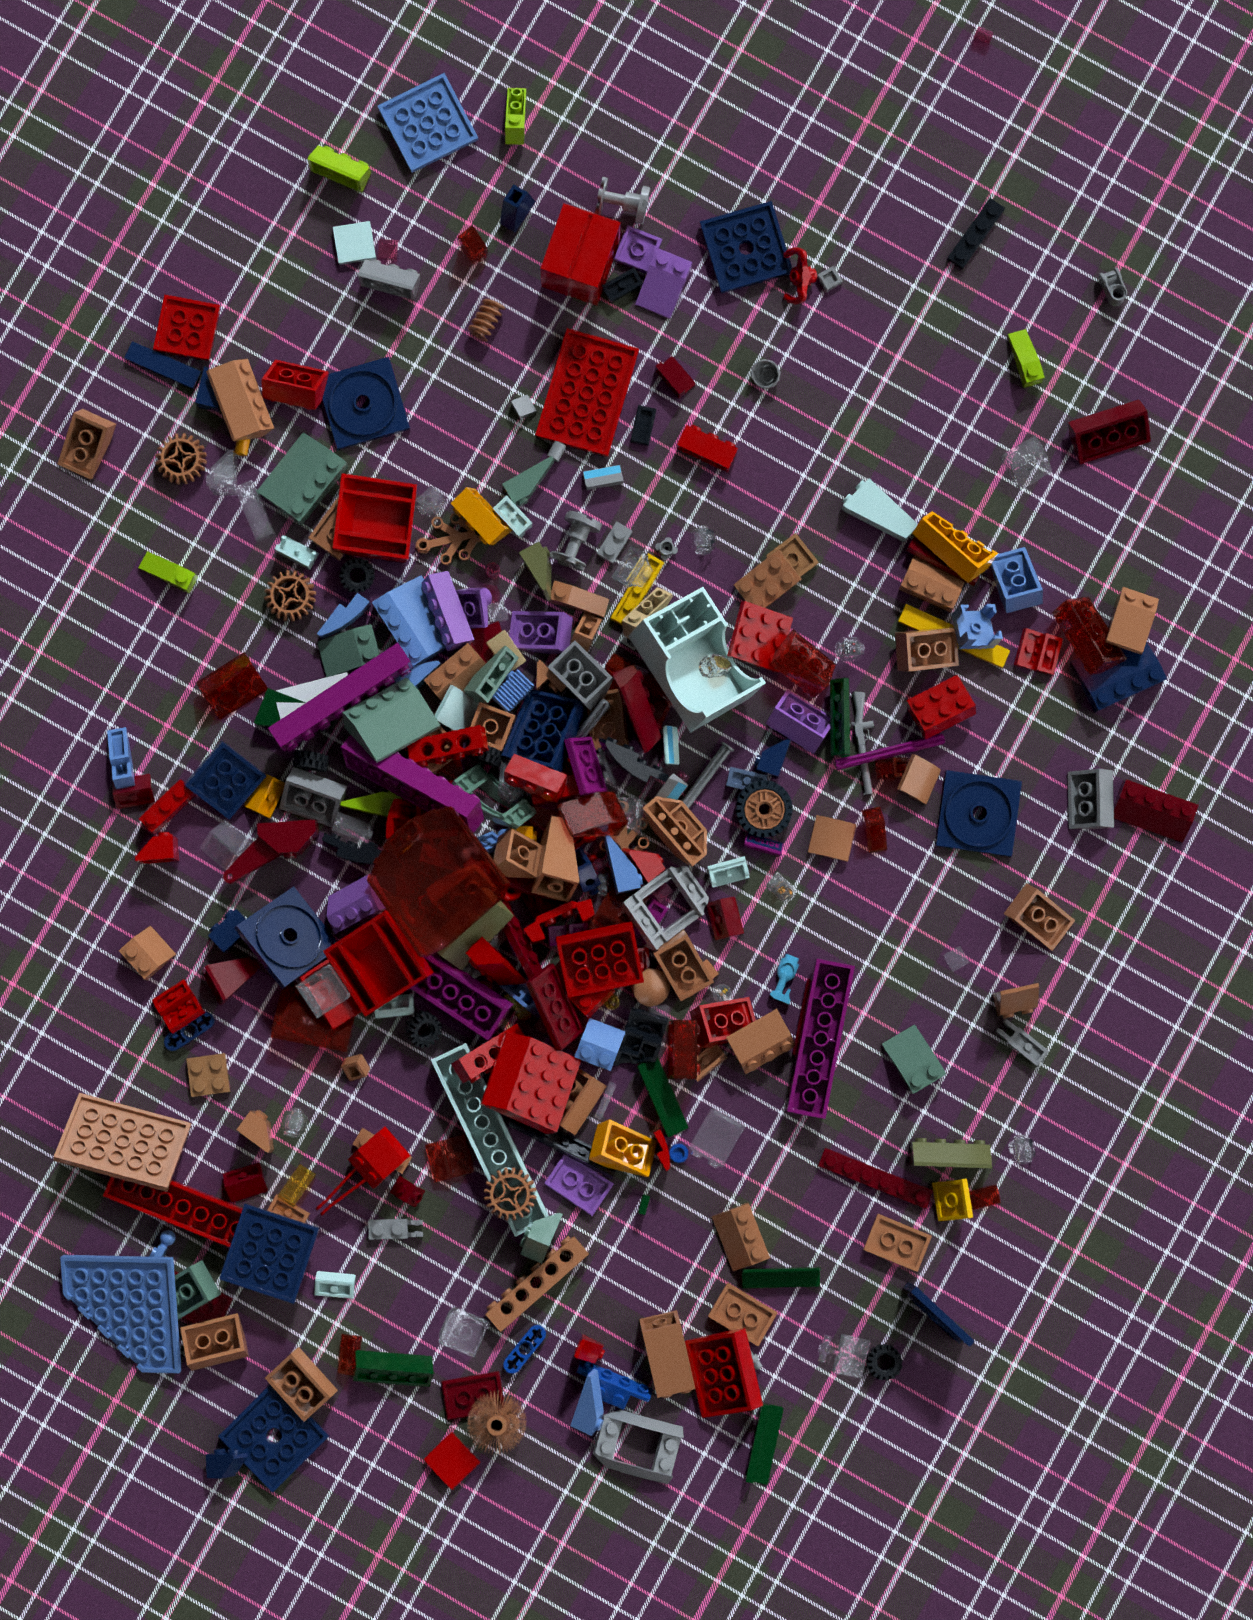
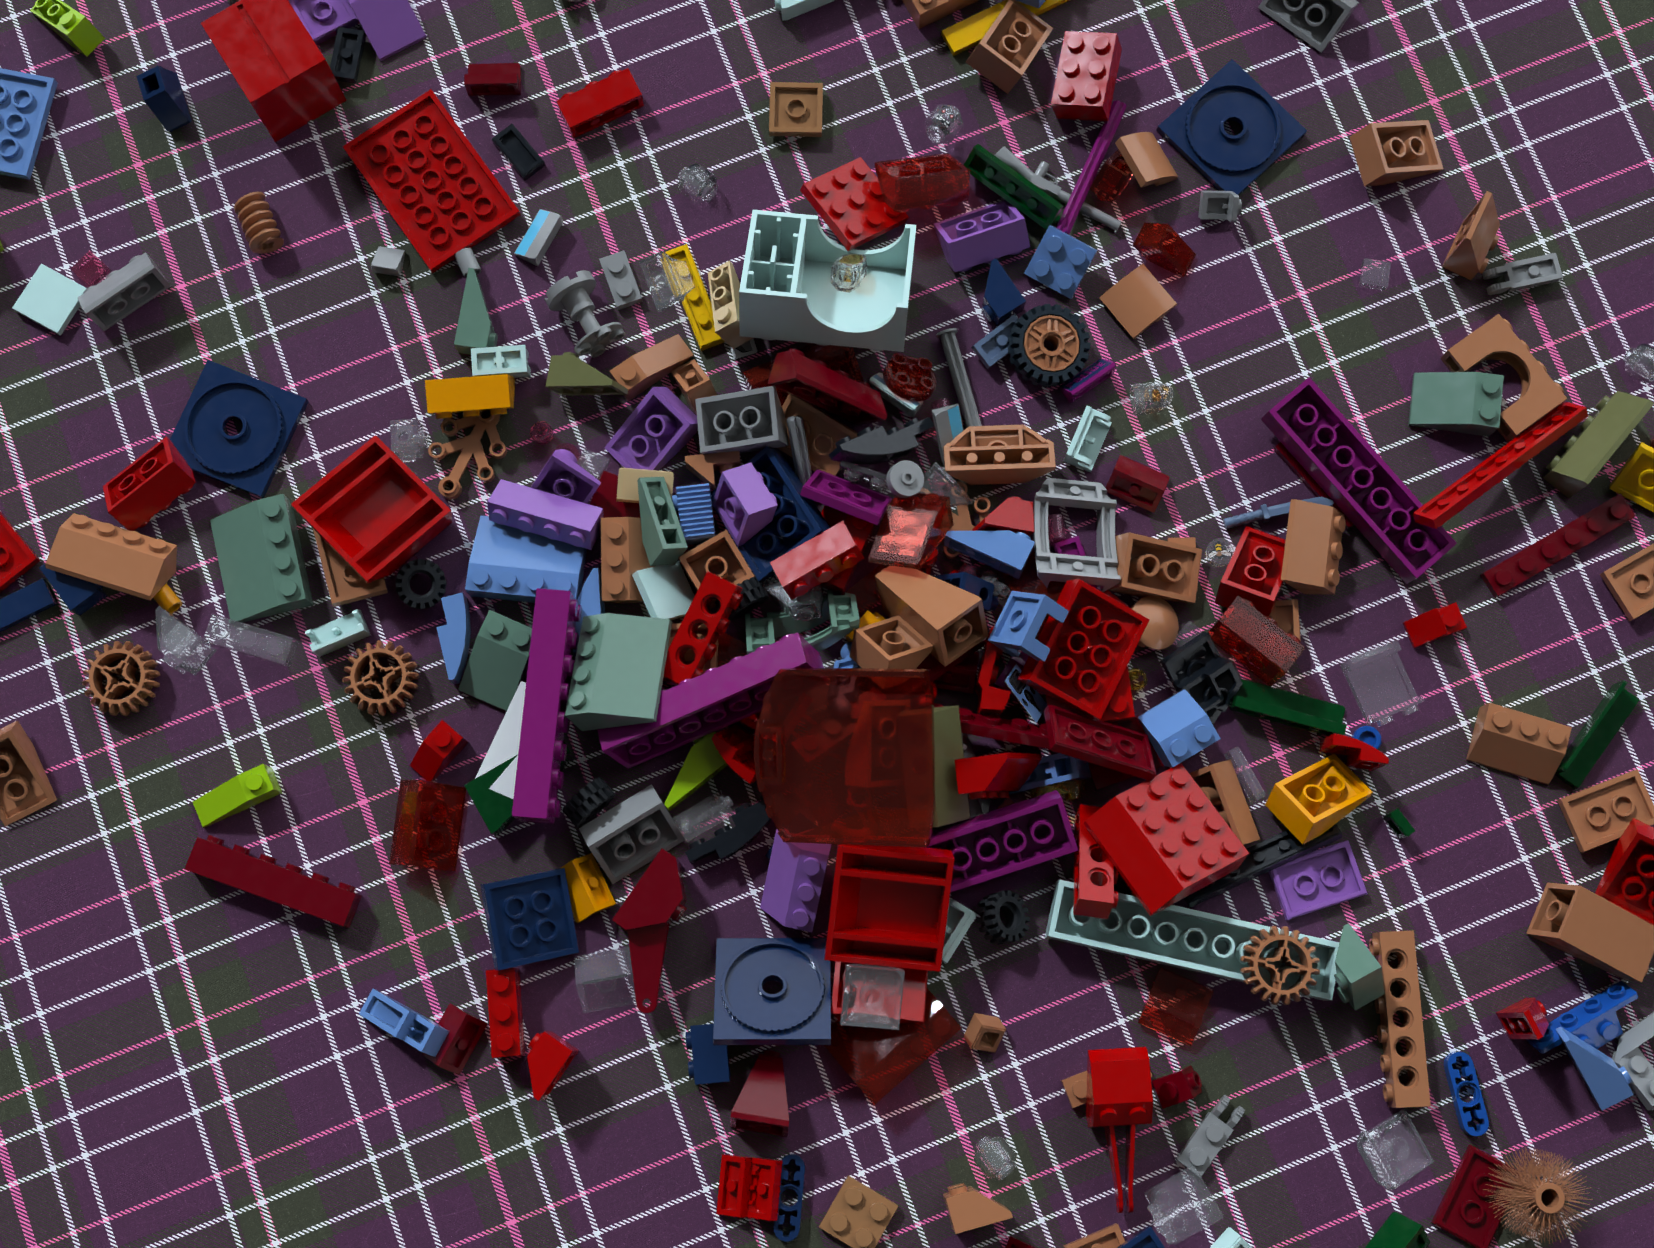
camera: 45 degrees left, 5 degrees down
(139, 630) = (273, 882): none -> dark red brick
(147, 952) = (657, 1174): nougat slope -> none
(275, 658) = (437, 751): none -> red slope
(296, 1185) = (1072, 1213): clear yellow plate -> none
(344, 1240) = (1182, 1206): none -> clear plate
(472, 245) = (164, 172): clear red slope -> none
(537, 713) = (744, 502): none -> medium lavender slope
(550, 951) = (1026, 695): none -> sticker
(585, 913) = (1021, 622): none -> medium blue panel
(618, 790) = (905, 479): none -> light grey wheel
(666, 553) = (673, 223): light grey plate -> none
(683, 747) = (910, 377): none -> clear red tile
(768, 580) = (798, 148): nougat plate -> none
(769, 1006) = (1265, 513): none -> sand blue sword
(774, 1143) = (1434, 625): none -> red slope
(786, 972) = (1250, 465): medium azure piece -> none
(819, 777) = (1060, 261): none -> medium blue plate
(891, 1110) = (1500, 465): none -> red plate
(925, 840) = (1219, 205): none -> light grey bracket
(968, 1056) = (1499, 342): none -> nougat arch

